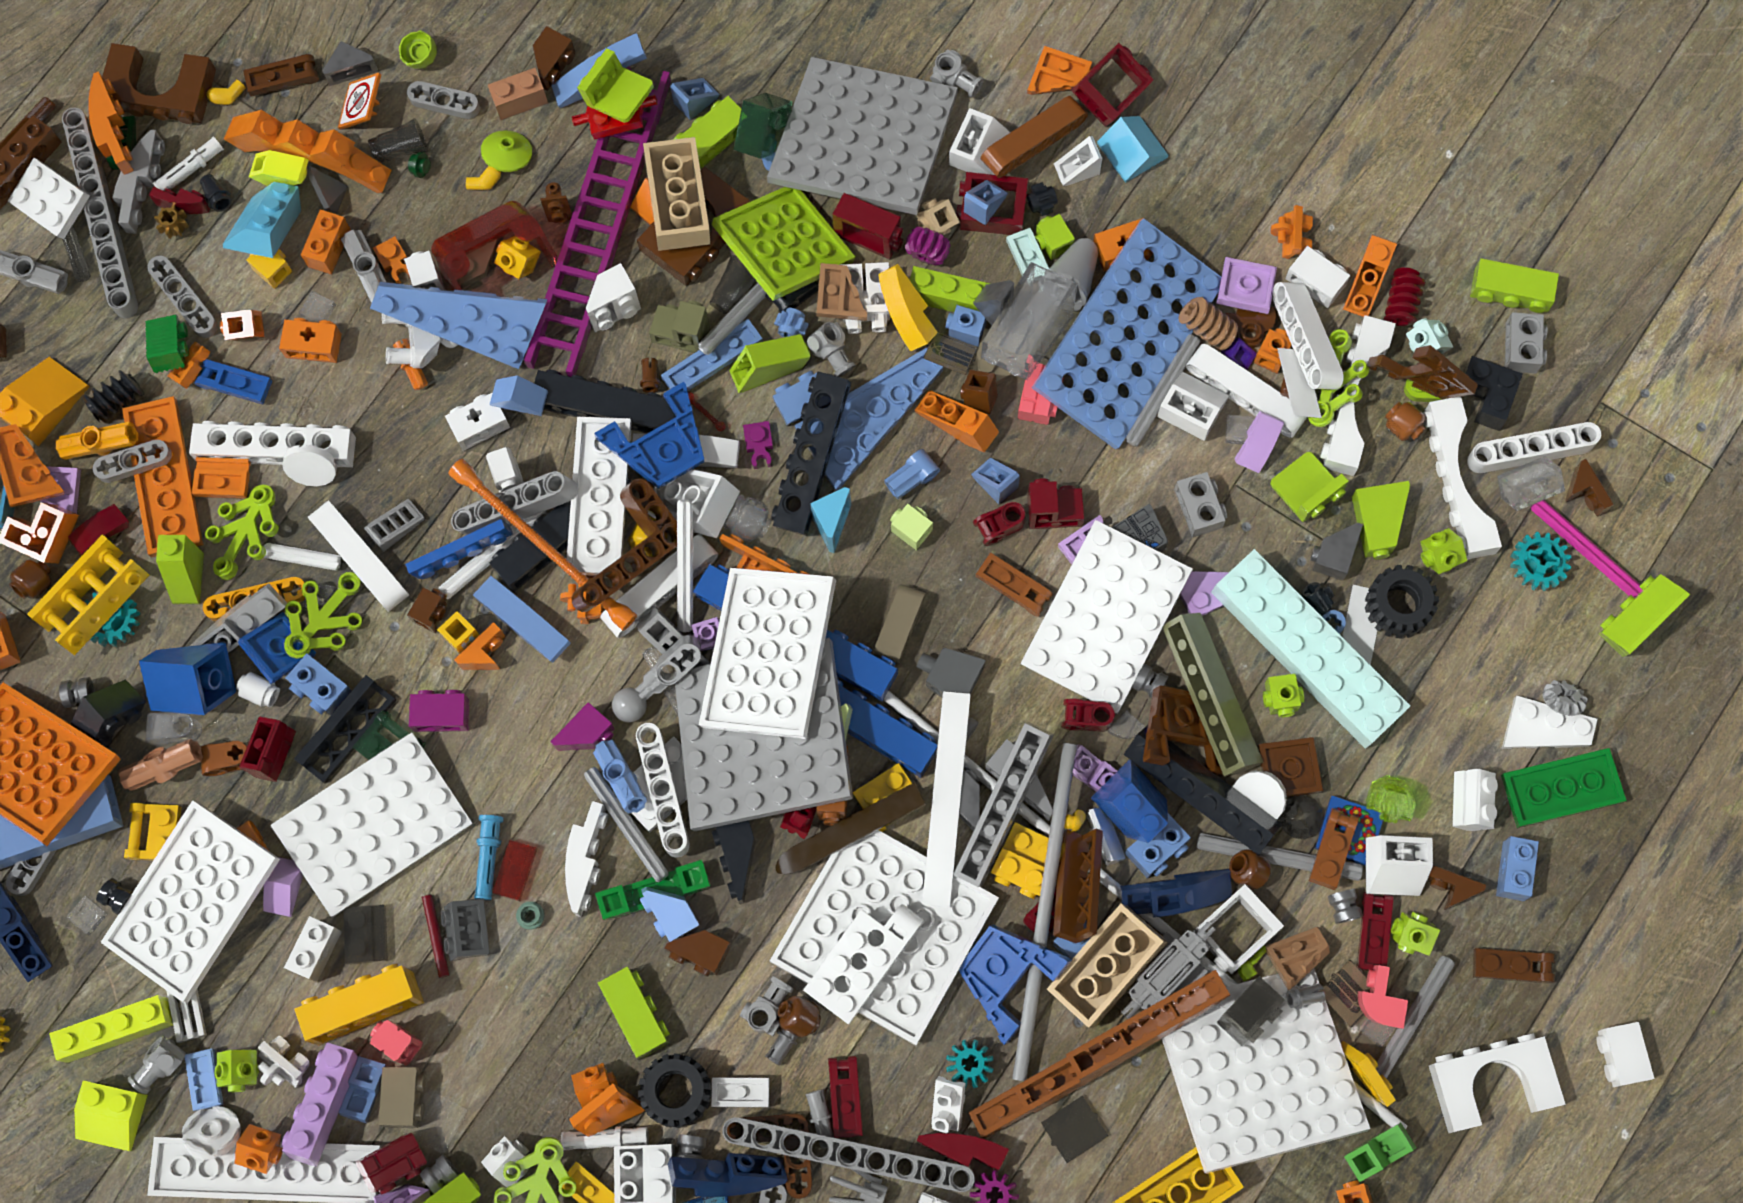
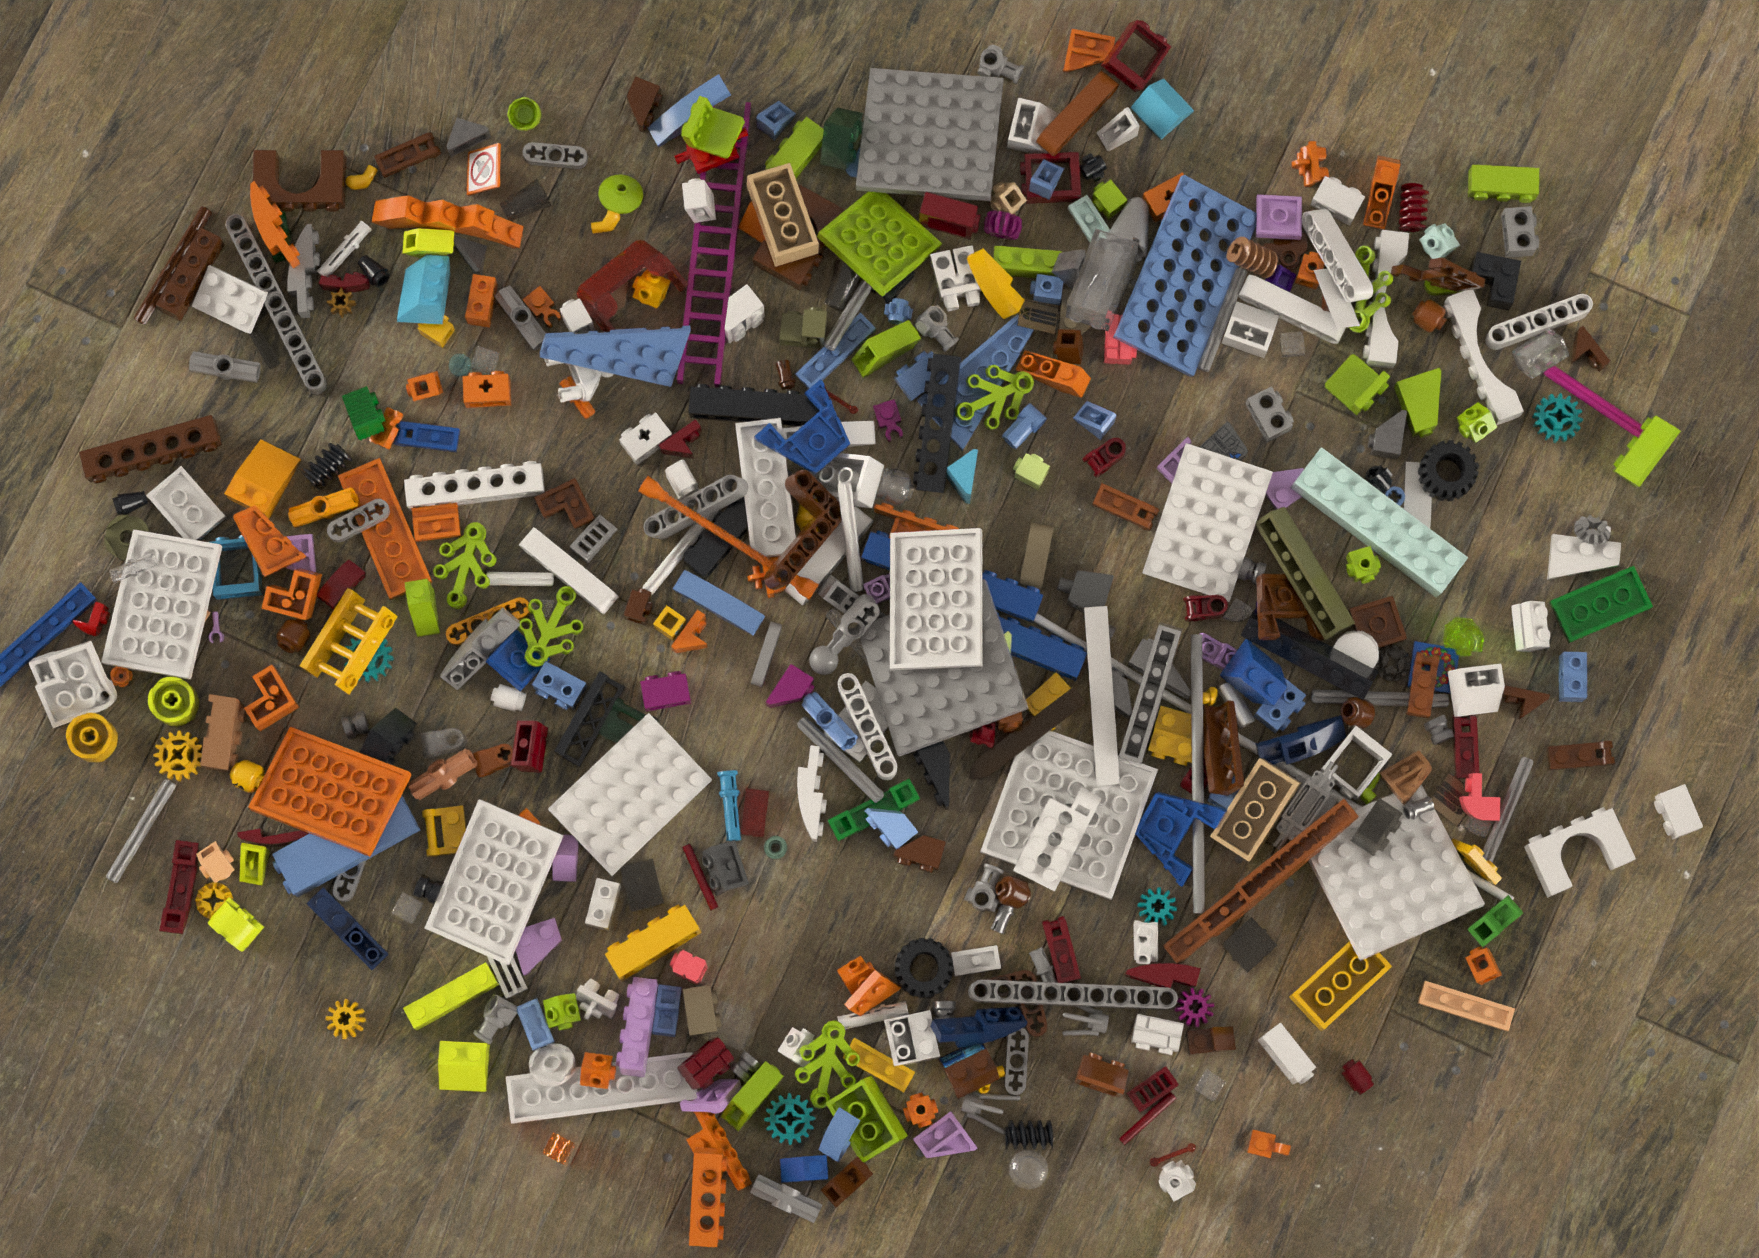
camera: 15 degrees left, 5 degrees up
(182, 296) = (363, 370): light grey beam -> none
(188, 678) = (450, 698): blue slope -> none
(227, 982) = (537, 943): none -> lavender wing
(287, 308) = (460, 365): none -> clear light blue plate
(309, 465) = (512, 500): white tile -> none
(374, 473) = (568, 498): none -> reddish brown plate
(419, 165) = (547, 218): dark green plate -> none
(450, 554) = (663, 547): blue plate -> none
(510, 431) = (676, 444): none -> dark red slope
(517, 93) = (621, 141): nougat brick -> none
(519, 395) = (679, 412): medium blue slope -> none
(555, 205) = (678, 240): reddish brown hinge -> none
(564, 687) = (766, 654): none -> light grey beam
(585, 165) = (699, 200): none -> white brick
(634, 1012) = (878, 911): lime brick -> none
(838, 294) = (935, 281): medium nougat wing -> none
(887, 433) = (997, 395): none -> lime plant
(1053, 506) = (1148, 434): dark red brick -> none
(1260, 441) = (1311, 354): lavender slope -> none
(1414, 933) = (1497, 742): lime brick -> none

